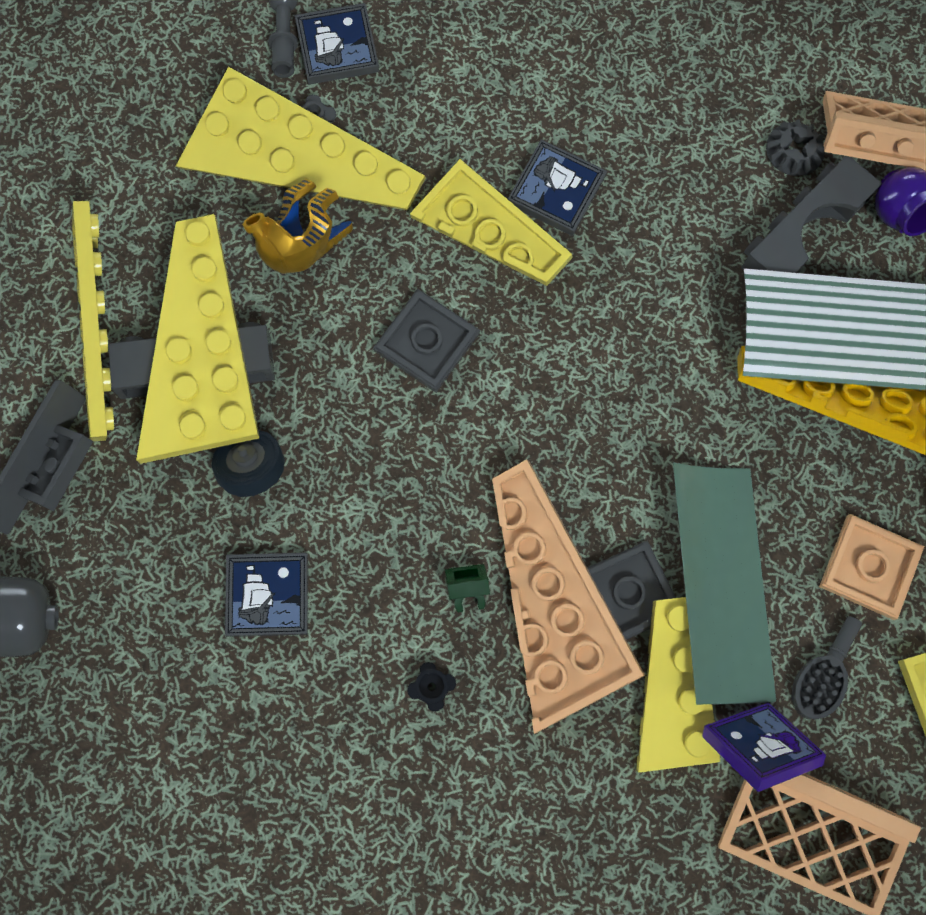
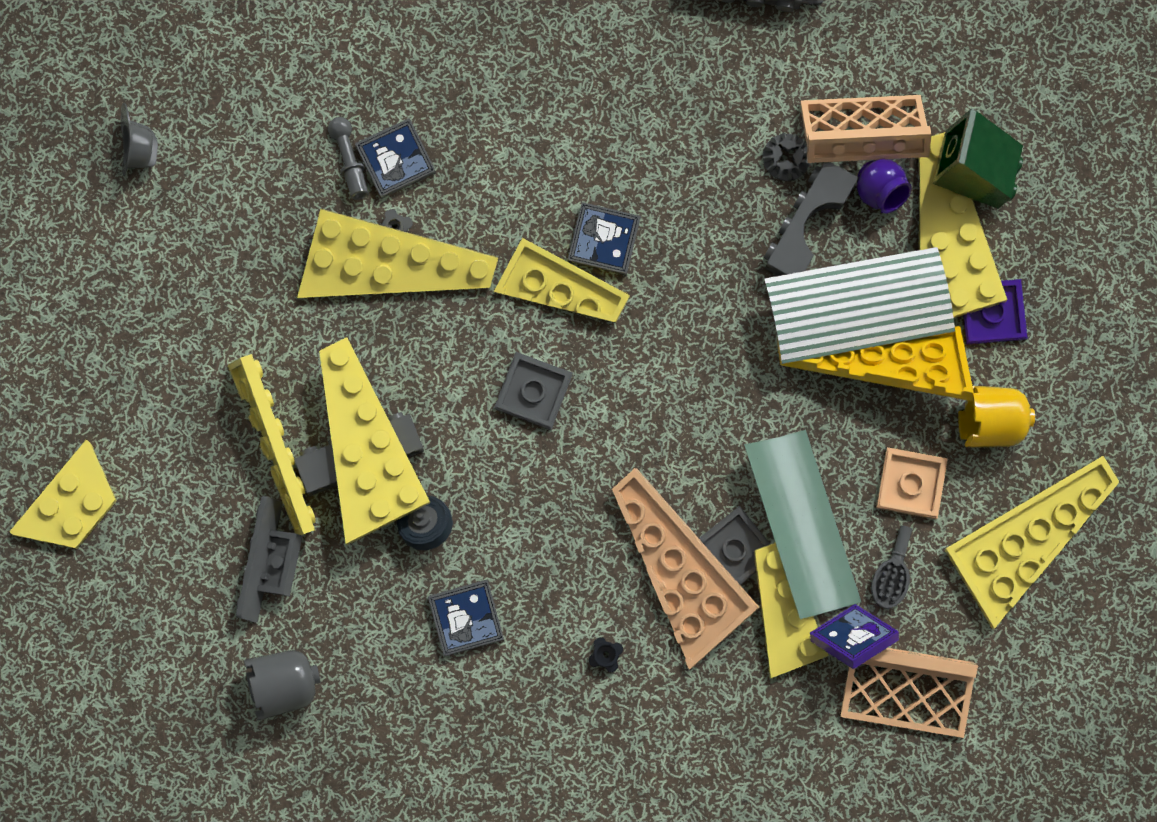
camera: 15 degrees left, 5 degrees up
(284, 243) = (402, 341): pearl gold piece -> none
(467, 582) = (612, 572): dark green tile -> none

